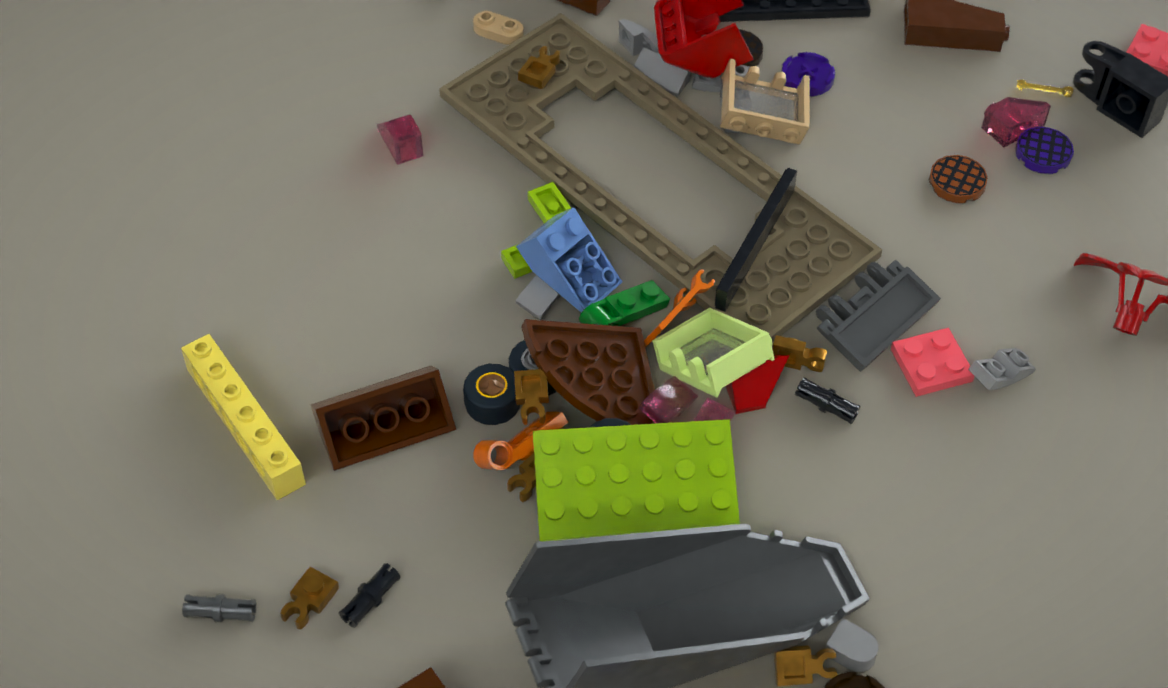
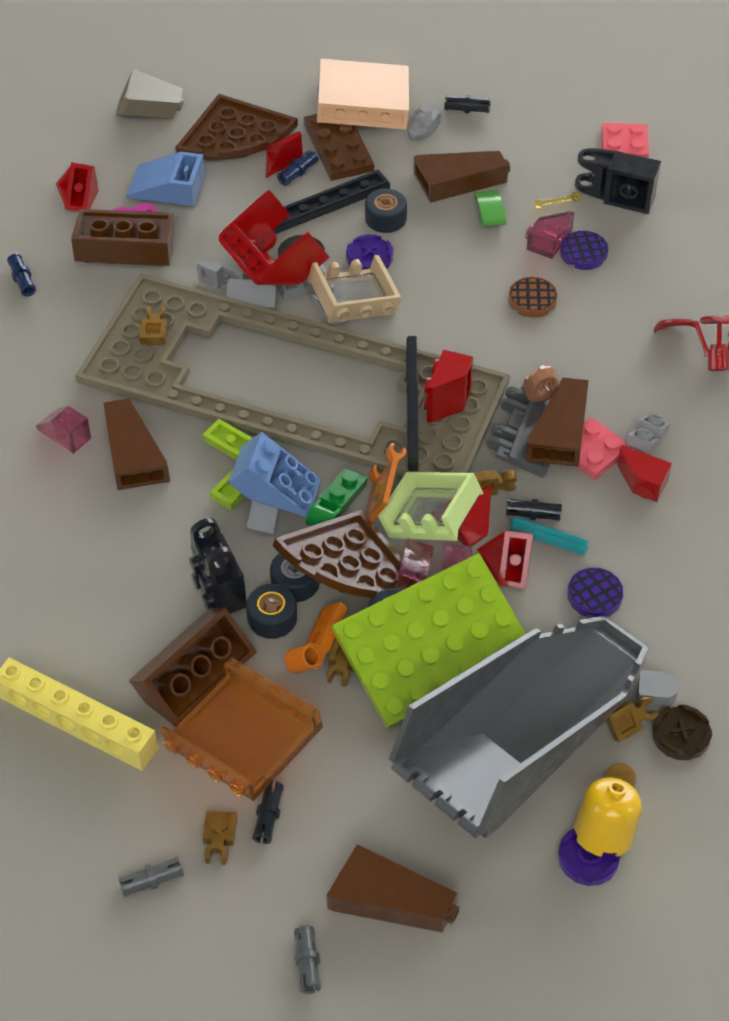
camera: 25 degrees left, 0 degrees up
(391, 504) = (244, 731): none -> clear orange panel
(450, 179) = (133, 449): none -> reddish brown slope
(454, 327) = (216, 568): none -> black brick
(497, 27) = (91, 305): tan plate -> none
(531, 391) = (309, 594): pearl gold plate -> none
(771, 441) = (508, 557): none -> red slope
(800, 234) = (449, 385): none -> red slope
(829, 435) = (551, 536): none -> teal axle
(845, 515) = (595, 592): none -> tile
(848, 35) = (385, 210): none -> black wheel
(904, 322) = (560, 427): none -> reddish brown slope
(905, 270) = (540, 384): none -> nougat rock
(963, 71) = (490, 208): none -> bright green slope
(973, 410) = (643, 472): none -> red slope

